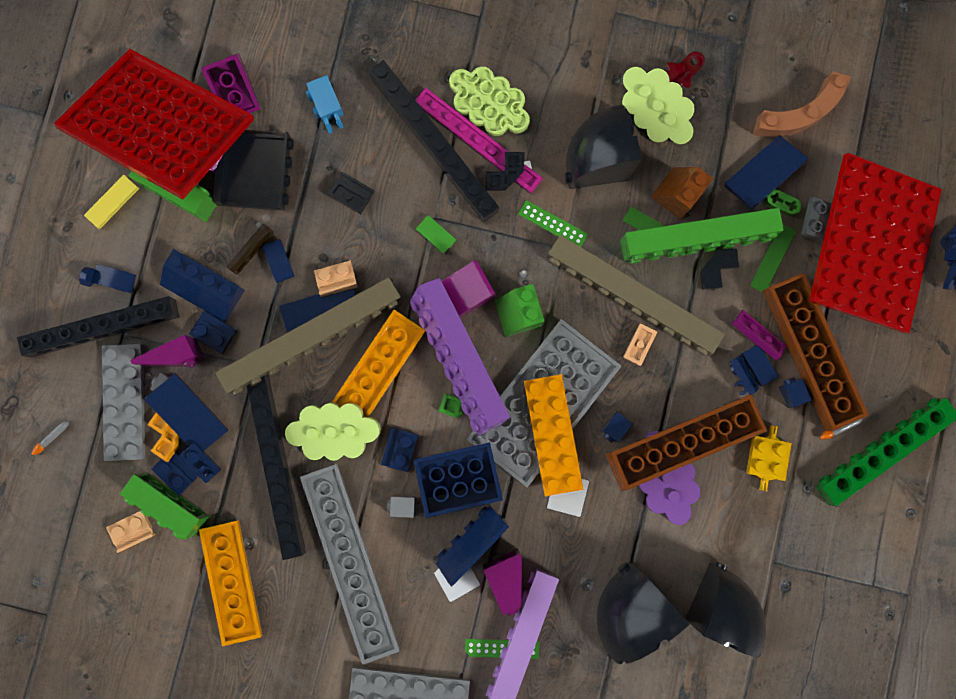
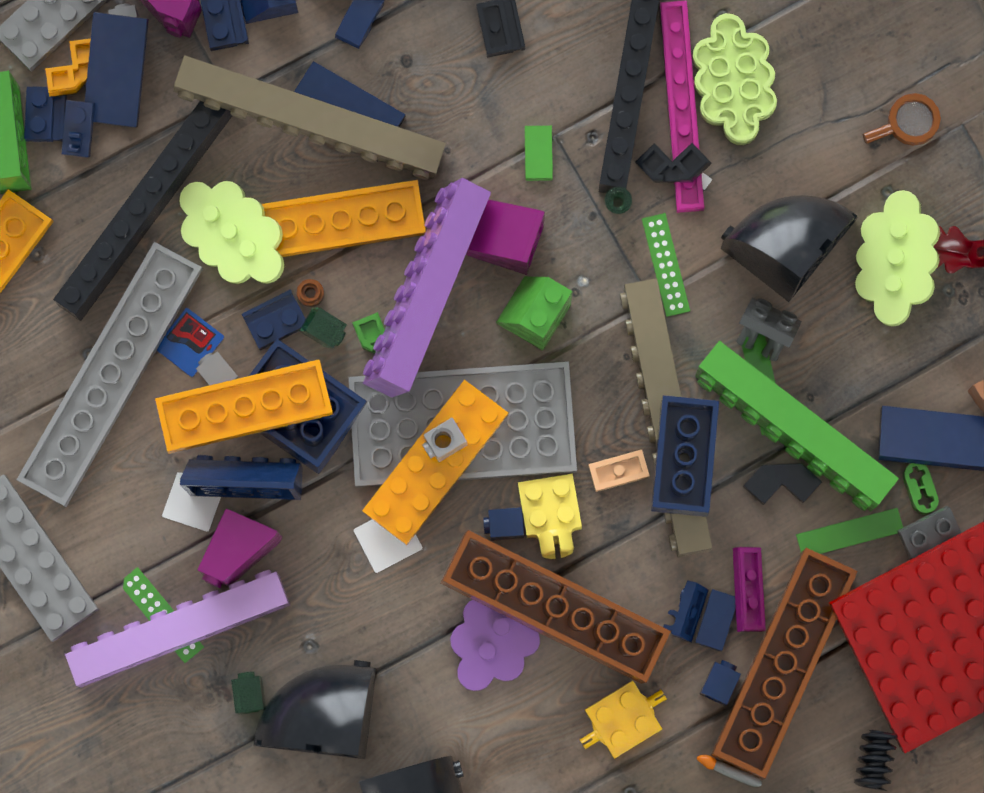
camera: 55 degrees right, 5 degrees down
(335, 278) = (395, 92): light nougat plate -> none
(370, 505) = (189, 341): none -> sticker
(397, 414) = (306, 285): none -> dark orange plate
(428, 429) = (323, 328): none -> clear green brick
(436, 511) = (243, 406): none -> light orange plate
(503, 212) = (618, 193): none -> clear green cone
(556, 415) = (451, 430): none -> light grey brick
(586, 641) = (248, 693): none -> clear green brick
(591, 35) = (910, 120): none -> piece
(631, 399) = (551, 513): none -> light yellow plate
(636, 198) = (770, 322): none -> dark grey plate
(681, 189) = (827, 365): dark orange slope -> none
(686, 315) = (691, 429): none -> dark blue brick
(902, 350) = (875, 760): none -> black piece

